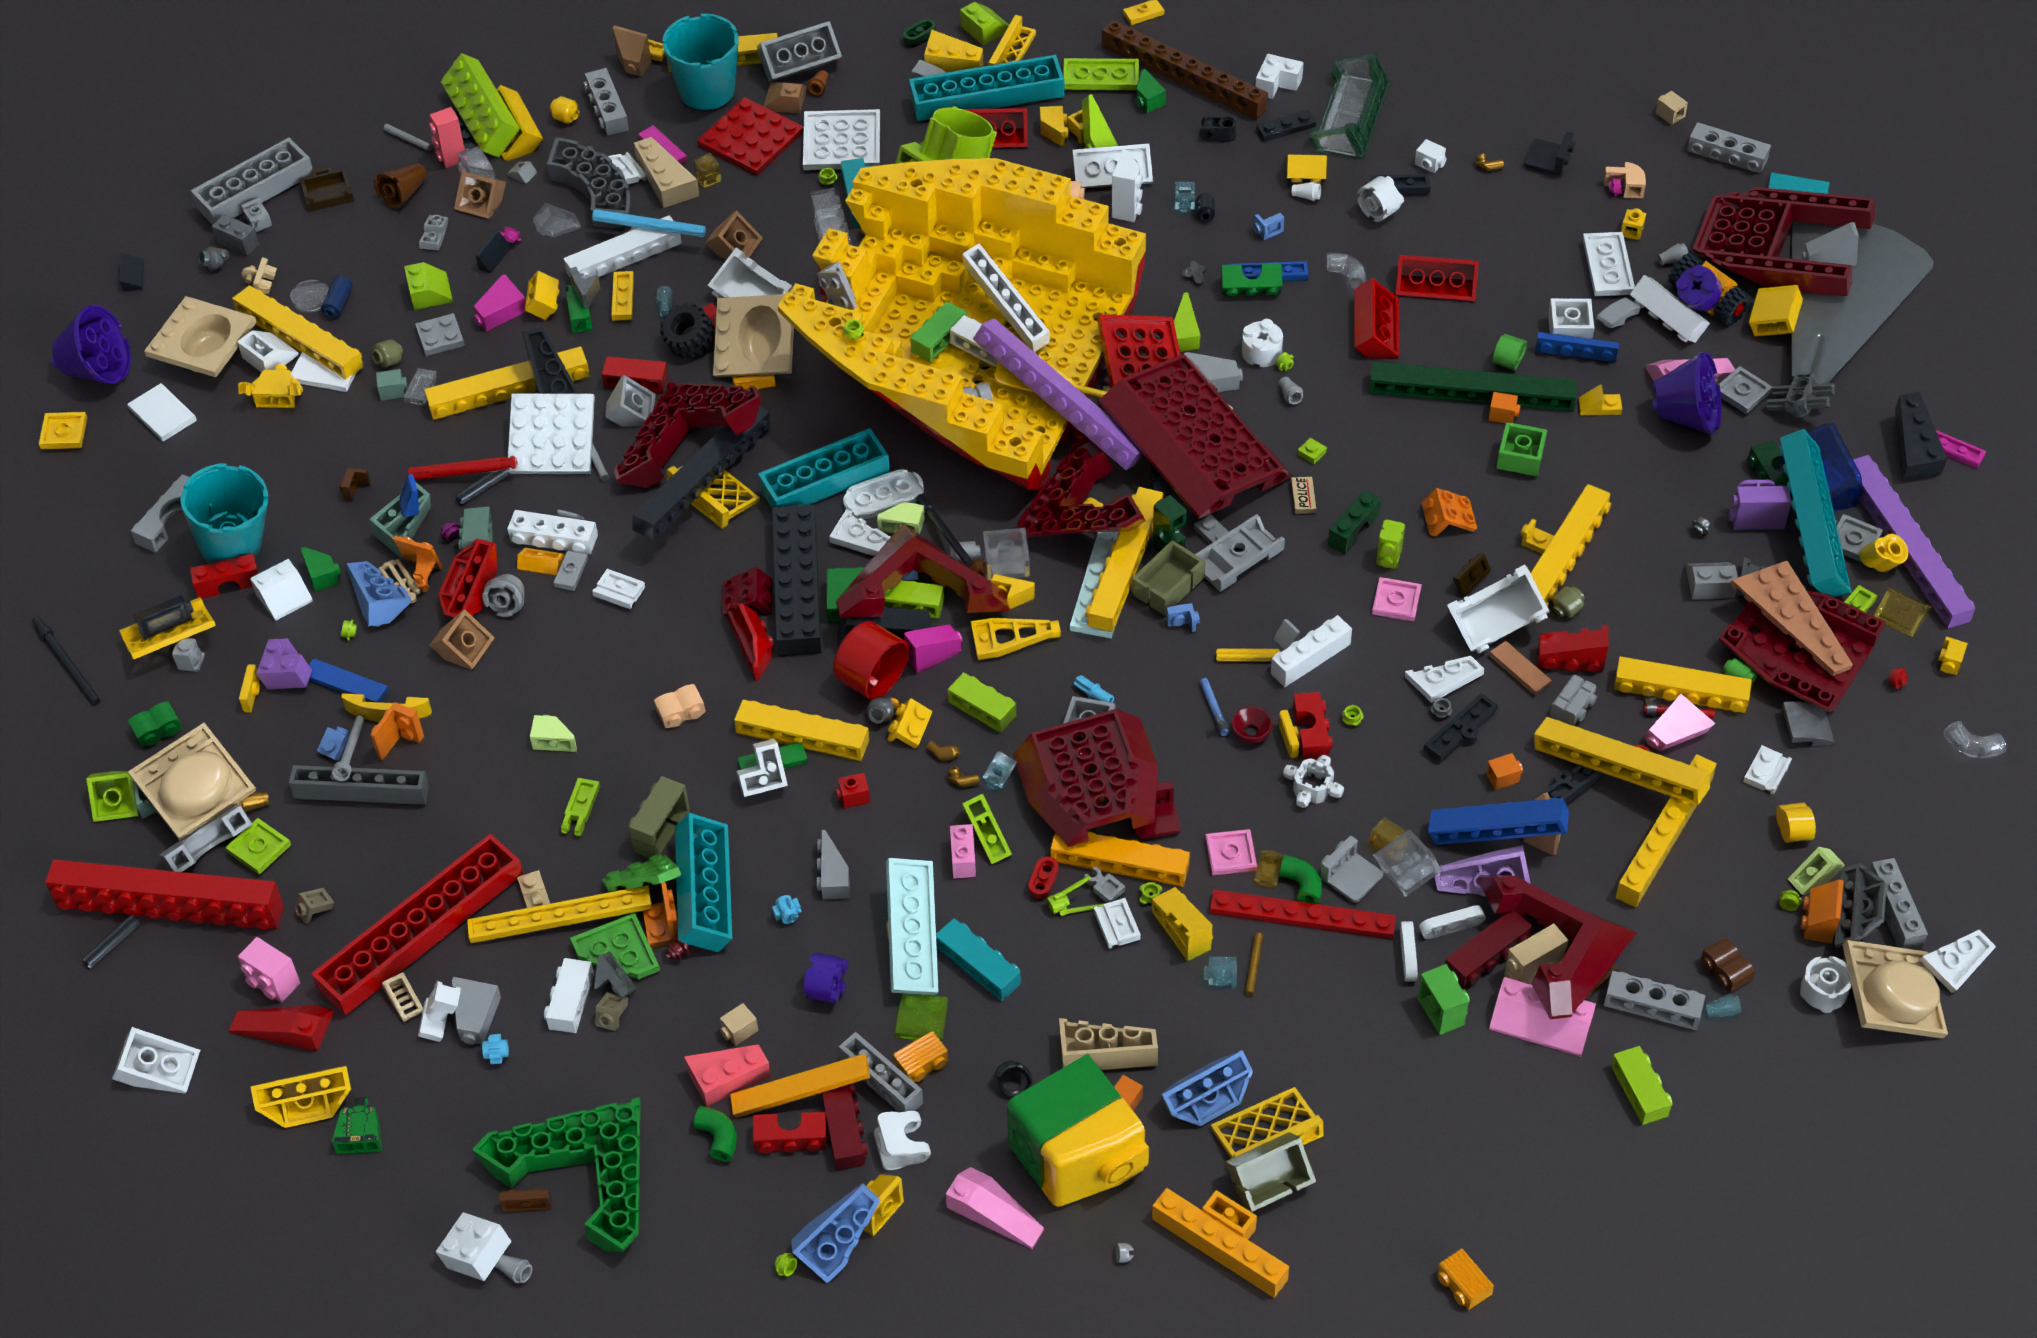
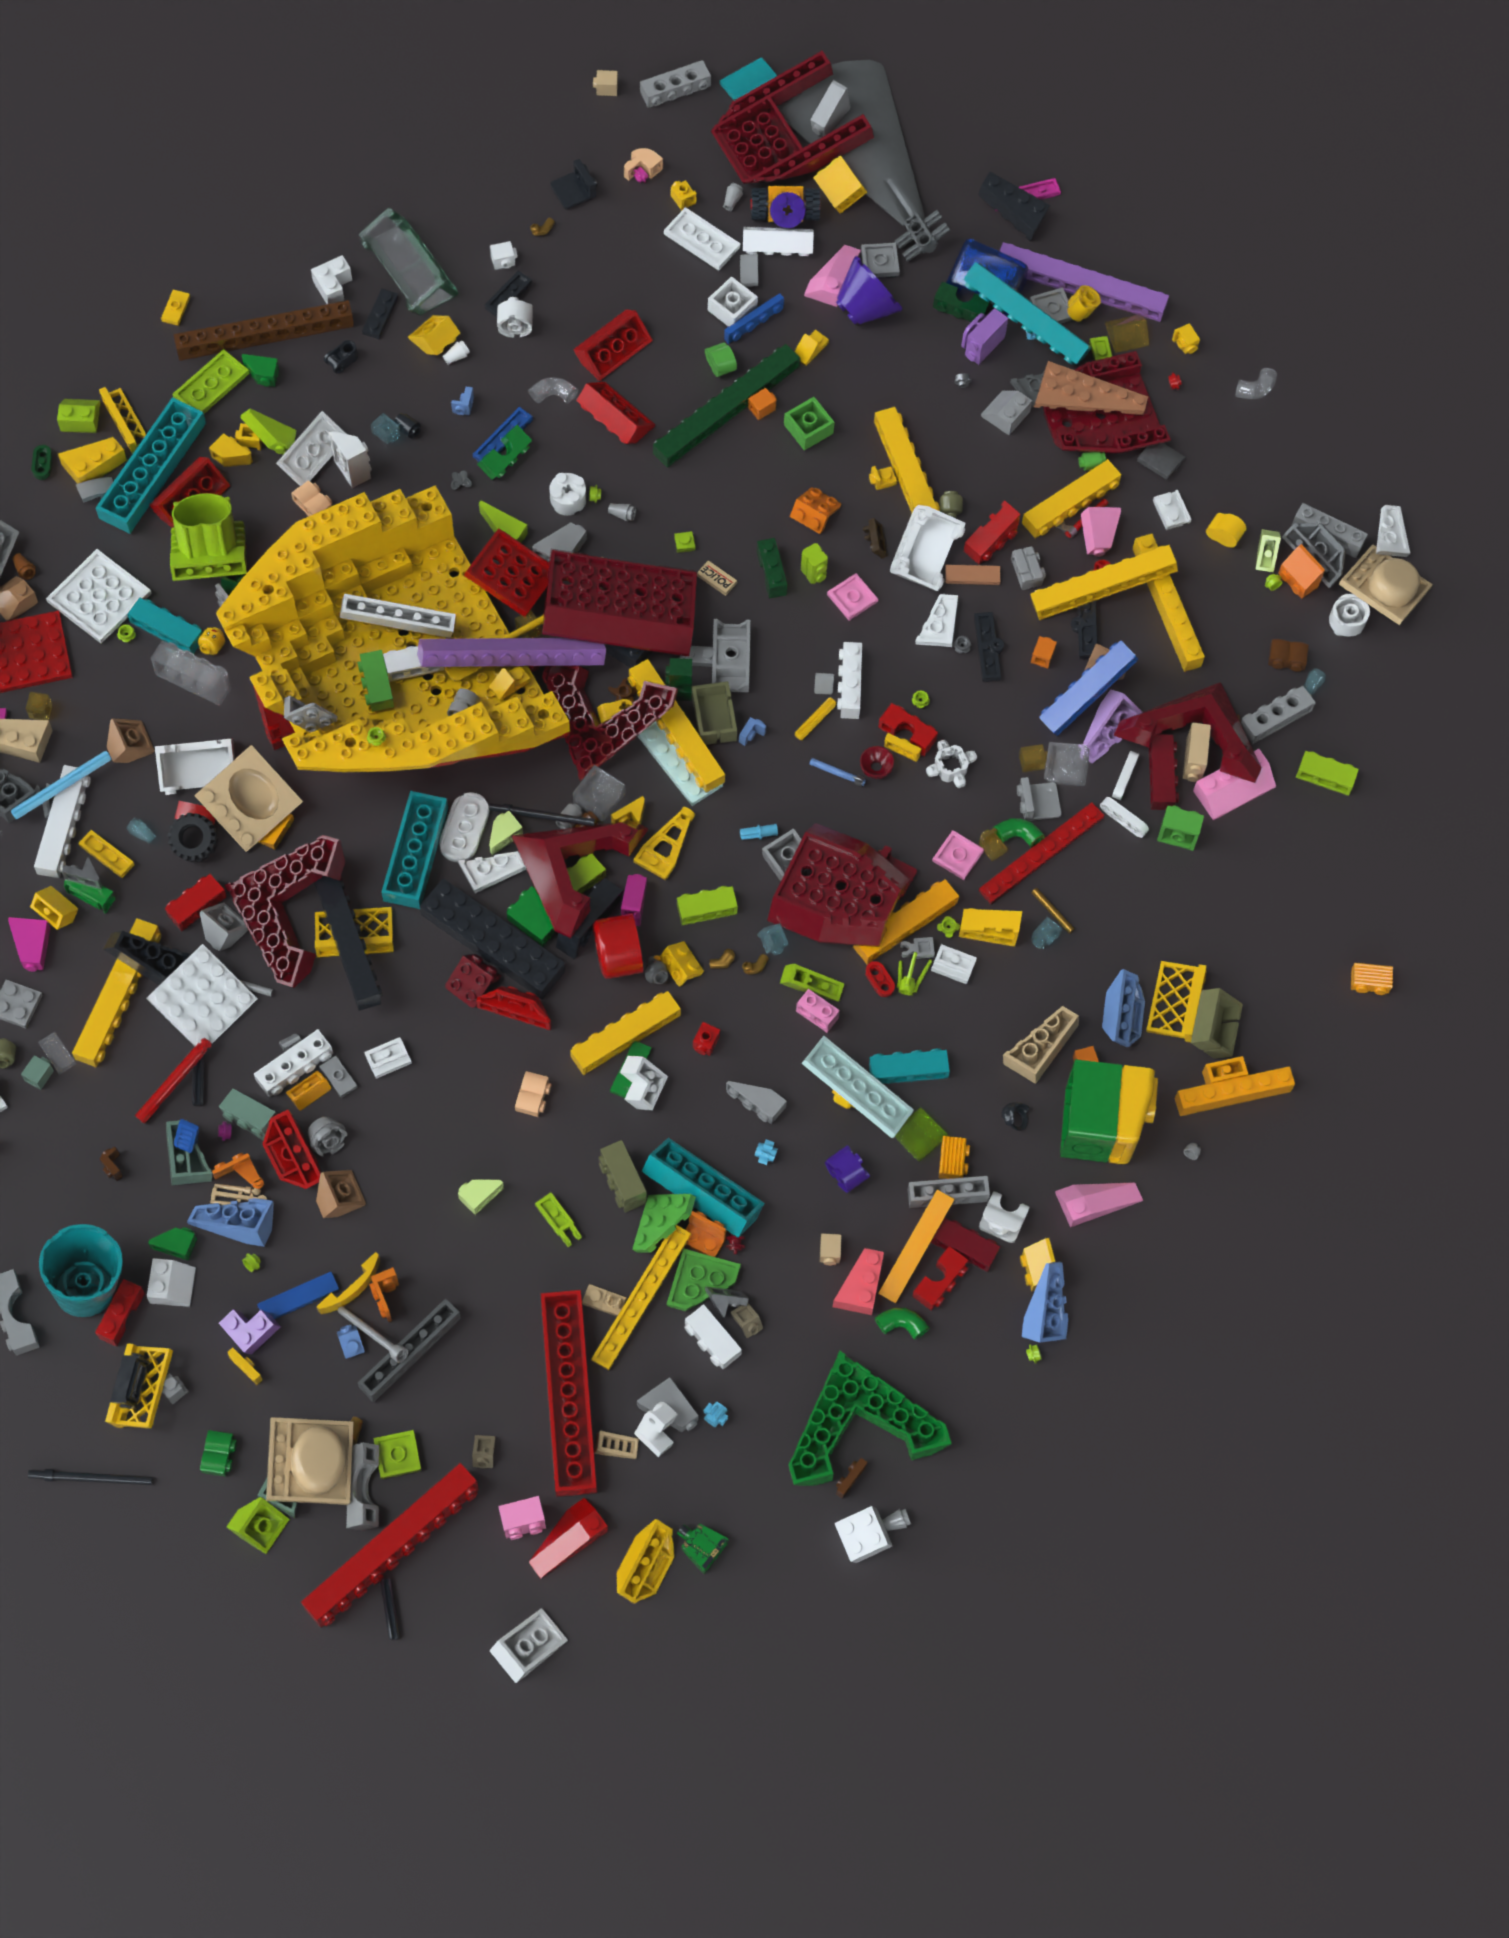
camera: 55 degrees left, 15 degrees up
(1031, 415) = (509, 682): none -> yellow slope

